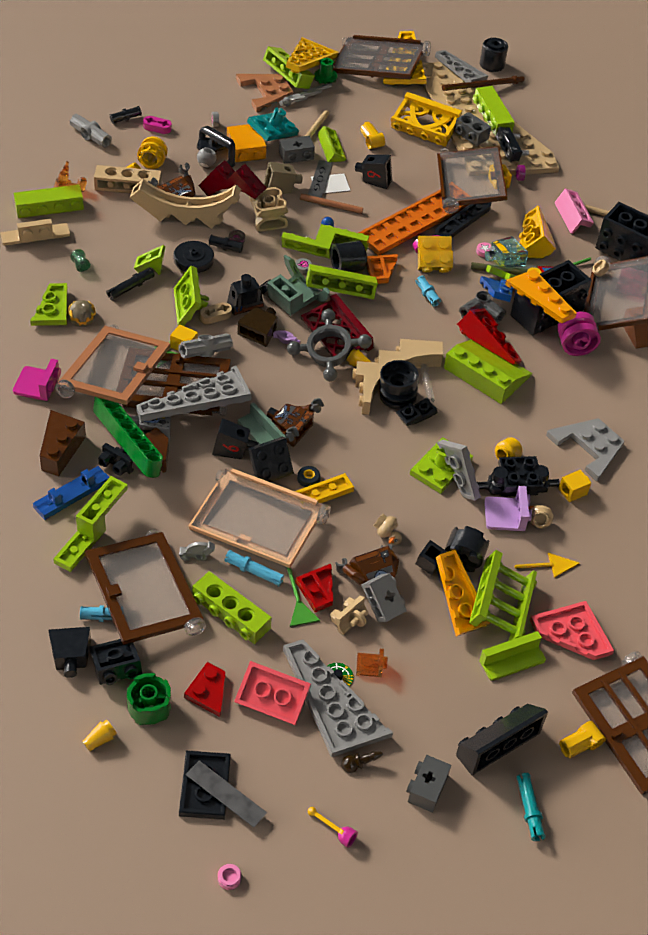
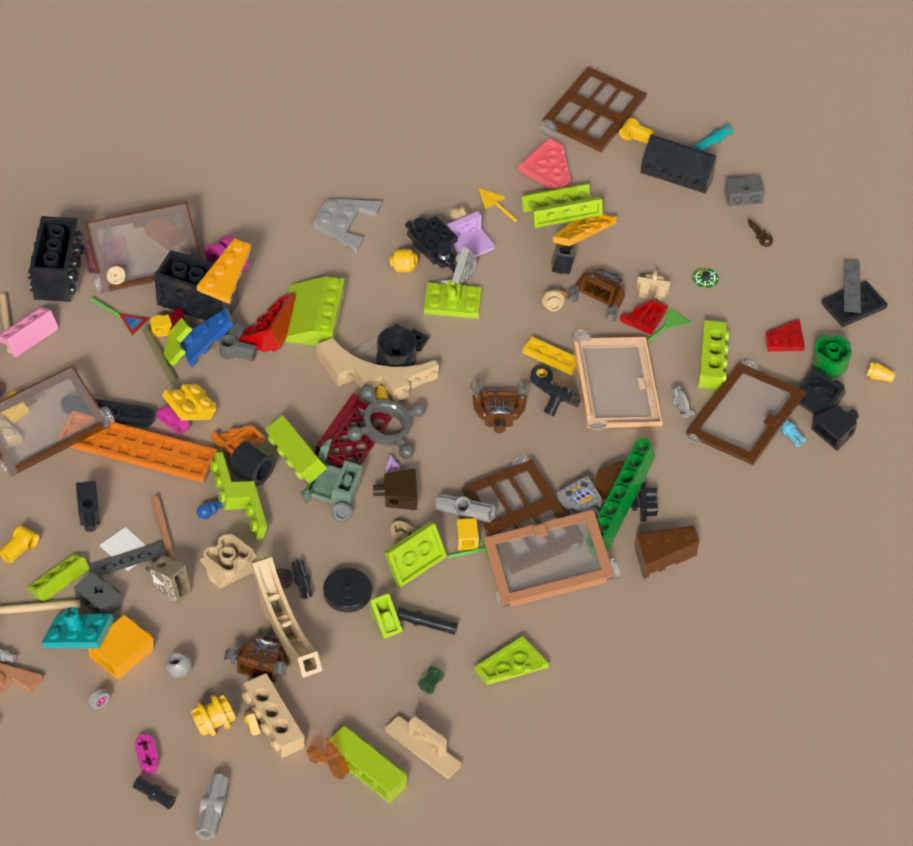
camera: 120 degrees left, 0 degrees up
(38, 382) = (612, 609): dark pink bracket -> none
(70, 492) = (701, 517): blue hinge -> none
(81, 313) = (497, 635): dark tan hair -> none
(90, 523) = (727, 470): lime bracket -> none
(200, 395) = (529, 465): light grey wing -> none
(216, 142) = (146, 680): black piece -> none
(226, 177) = (224, 601): dark red arch -> none
(229, 877) = (899, 261): bright pink tile -> none
(232, 440) = (559, 432): black torso -> none
(245, 295) = (373, 515): black torso -> none
(253, 567) = (665, 367): medium azure pin -> none
(260, 426) = (525, 425): sand green panel -> none
(273, 693) = (760, 294): coral plate -> none
(303, 265) = (282, 504): light grey tile -> none
(334, 706) = (734, 263): light grey wing -> none
(345, 834) = (818, 216): hinge -> none
(371, 664) = (680, 260): clear orange bracket -> none
(384, 607) = (626, 266): light grey brick -> none
(428, 291) = (242, 393): medium azure pin -> none
(469, 546) = (536, 241): black brick -> none
(482, 248) = (141, 379): bright pink tile -> none
(507, 253) = (142, 353): clear light blue torso -> none
(512, 656) = (609, 194): lime panel -> none
(536, 235) = (94, 346): yellow wedge -> none
(574, 485) = (406, 209): yellow brick -> none

